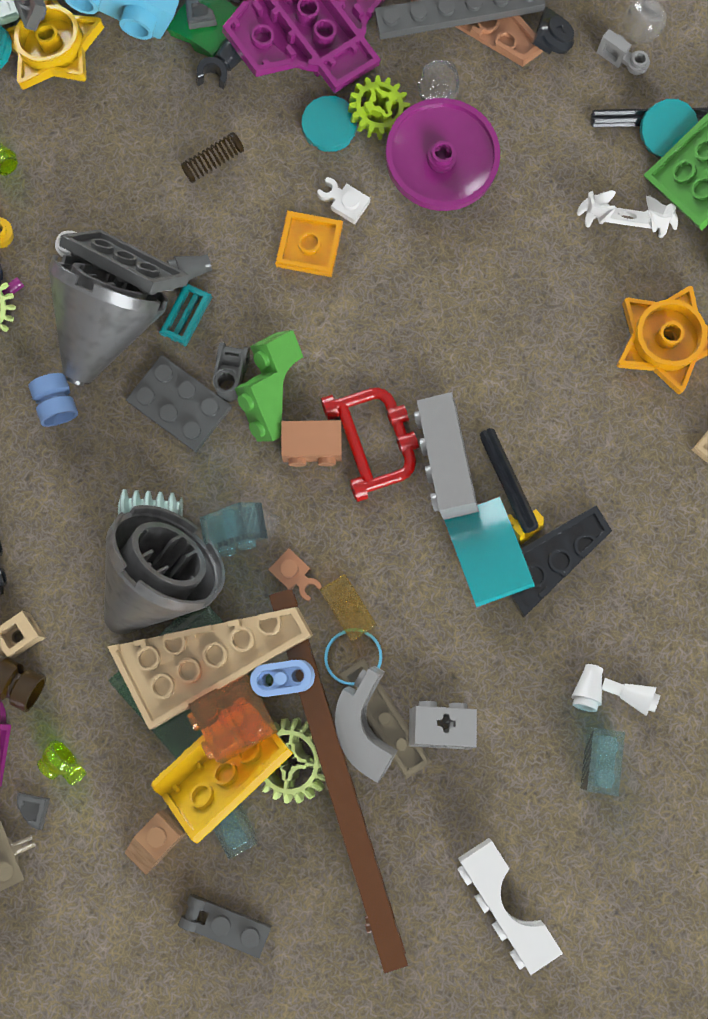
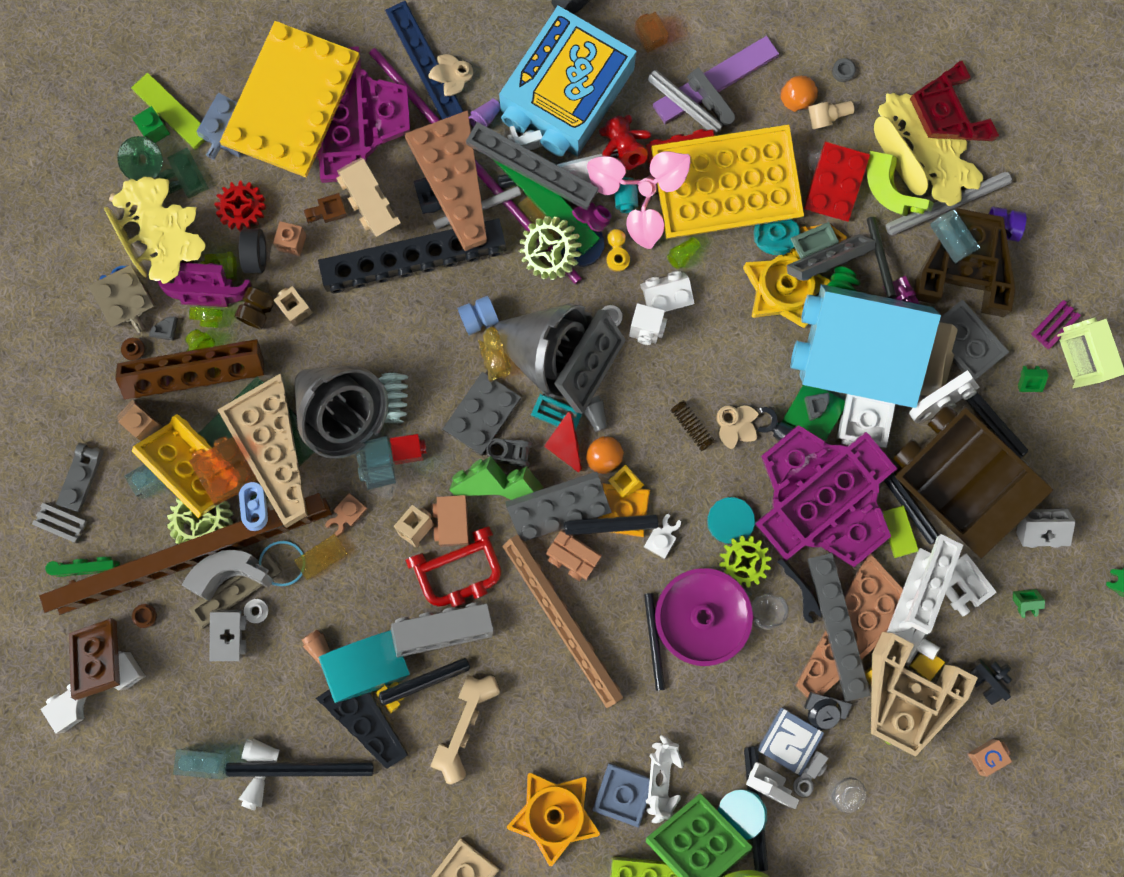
camera: 85 degrees right, 0 degrees up
(22, 748) = (207, 316): none -> clear neon green piece
(45, 176) = (668, 292): none -> white bracket
(65, 848) = (139, 351): none -> reddish brown plate
(83, 195) = (647, 324): none -> white brick
(91, 772) = (190, 369): none -> reddish brown brick
(104, 379) = (494, 357): none -> clear yellow animal
(216, 491) = (408, 449): none -> red brick
(217, 106) = (739, 428): none -> tan plate
(222, 305) = (565, 444): none -> red tile
(241, 260) = (604, 454): none -> orange hair
(272, 979) = (42, 515): none -> light grey tile
(275, 235) = (625, 481): none -> yellow slope
(302, 309) = (551, 507): none -> dark grey plate
(303, 488) = (406, 525): none -> tan brick
(328, 252) = (611, 524): none -> black axle
(345, 920) = (81, 567): none -> green plate
(362, 300) = (573, 556): none -> nougat brick
(402, 691) = (263, 611): none -> white plate
(412, 837) = (144, 616): none -> reddish brown plate
(423, 42) = (809, 600): none -> black arm
(439, 317) = (560, 618): none -> medium nougat plate
(459, 614) = (315, 644): none -> nougat cone
(467, 216) = (654, 642): none -> black bar
(468, 902) = (94, 659): none -> reddish brown tile
(586, 75) = (790, 741): none -> tile
(599, 458) = (447, 758): none -> tan plate
(611, 639) = (299, 769): none -> black axle
(637, 97) = (771, 785): none -> white bracket
(644, 261) = (622, 795): none -> sand blue tile

